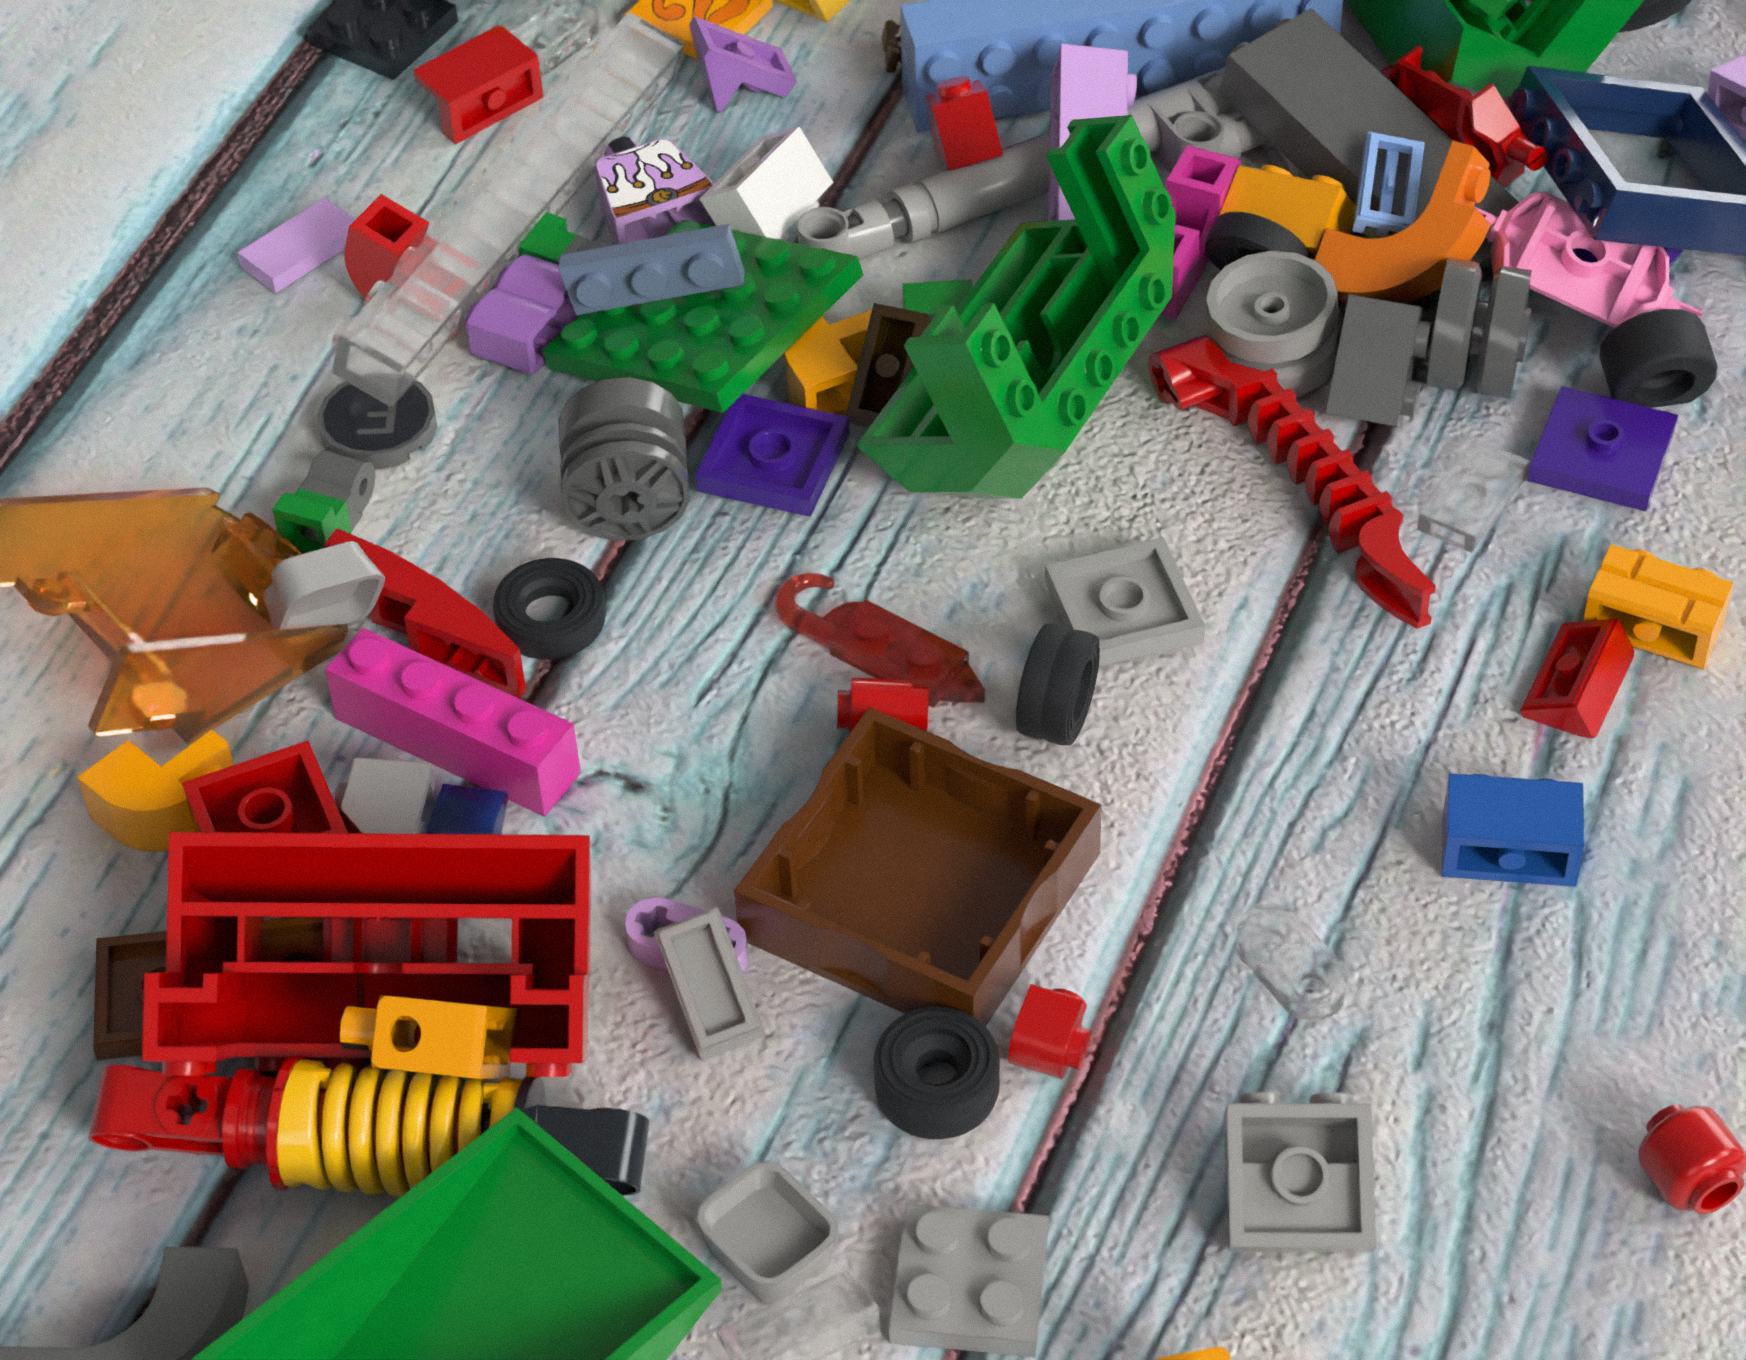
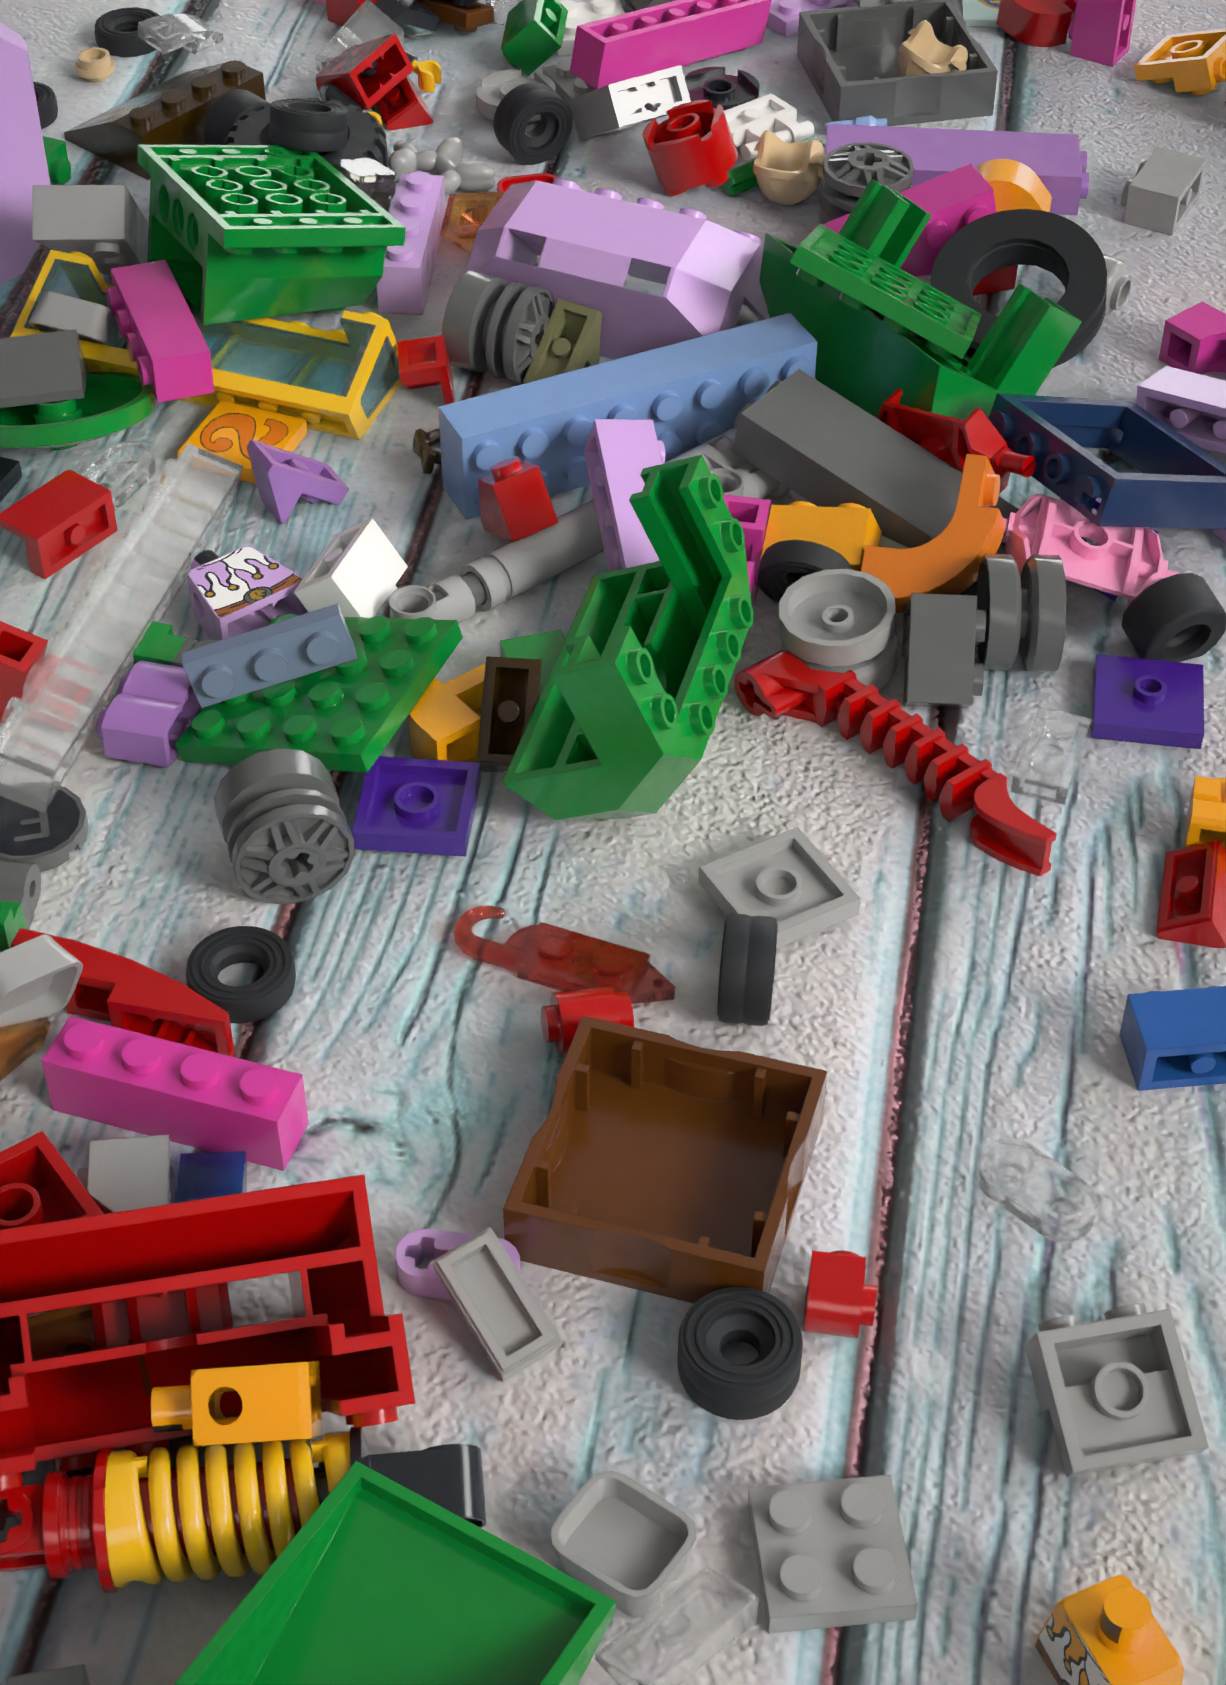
camera: 15 degrees left, 5 degrees down
(1383, 219) = (908, 530): light blue tile -> none

